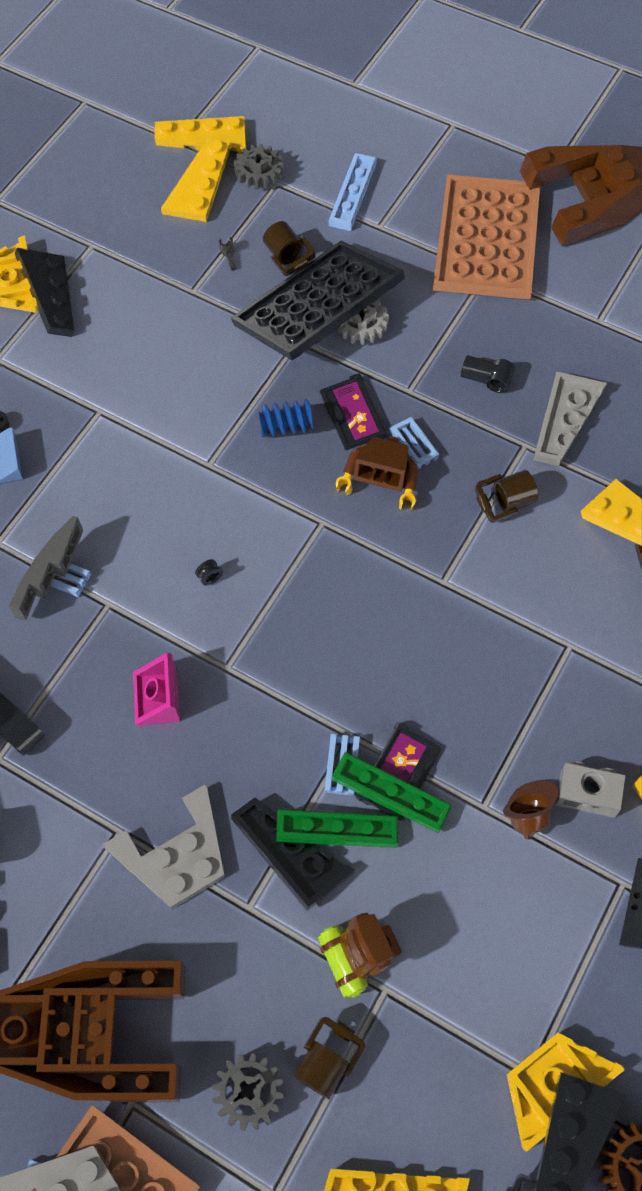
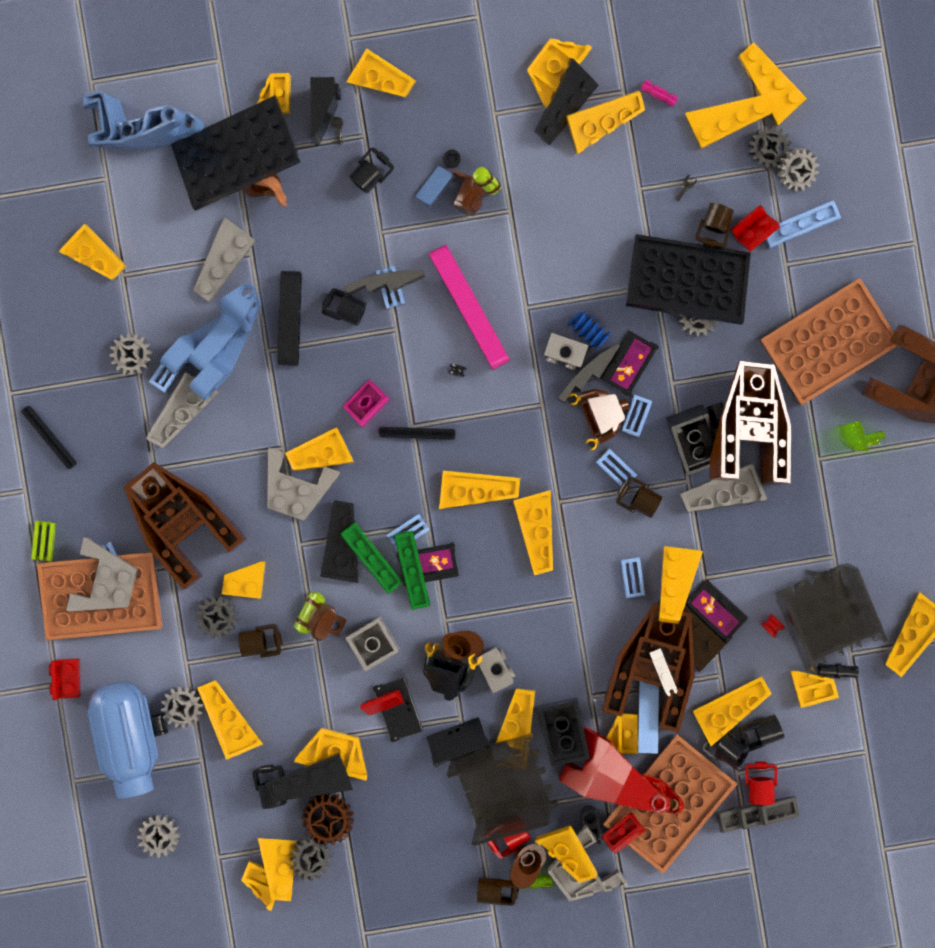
camera: 45 degrees right, 25 degrees up
(40, 628) = (349, 309): none -> black piece
(44, 414) = (474, 189): none -> reddish brown piece
(95, 275) = (602, 119): none -> yellow wing
(122, 217) = (659, 93): none -> dark pink axle
(155, 512) = (469, 307): none -> dark pink beam
(162, 788) = (320, 452): none -> yellow wing
(235, 1015) = (245, 581): none -> yellow wing
(237, 667) = (423, 433): none -> black axle
(293, 444) = (577, 351): none -> light grey brick
(300, 156) = (798, 179): none -> light grey gear
(322, 223) = (754, 228): none -> red bracket
(329, 448) = (594, 368): none -> dark grey slope
(351, 655) = (471, 488): none -> yellow wing
(445, 908) = (373, 643): none -> light grey brick
(446, 618) = (536, 527): none -> yellow wing
(455, 503) = (614, 477): none -> light blue tile
(486, 404) = (693, 438): none -> black slope
(506, 331) = (753, 414): none -> wedge
(532, 961) = (382, 702): none -> red slope
(545, 949) = (398, 718): none -> black door
(556, 846) = (448, 675): none -> black torso
(590, 571) = (640, 577): none -> light blue tile
(604, 273) = (854, 438): none -> clear neon green brick

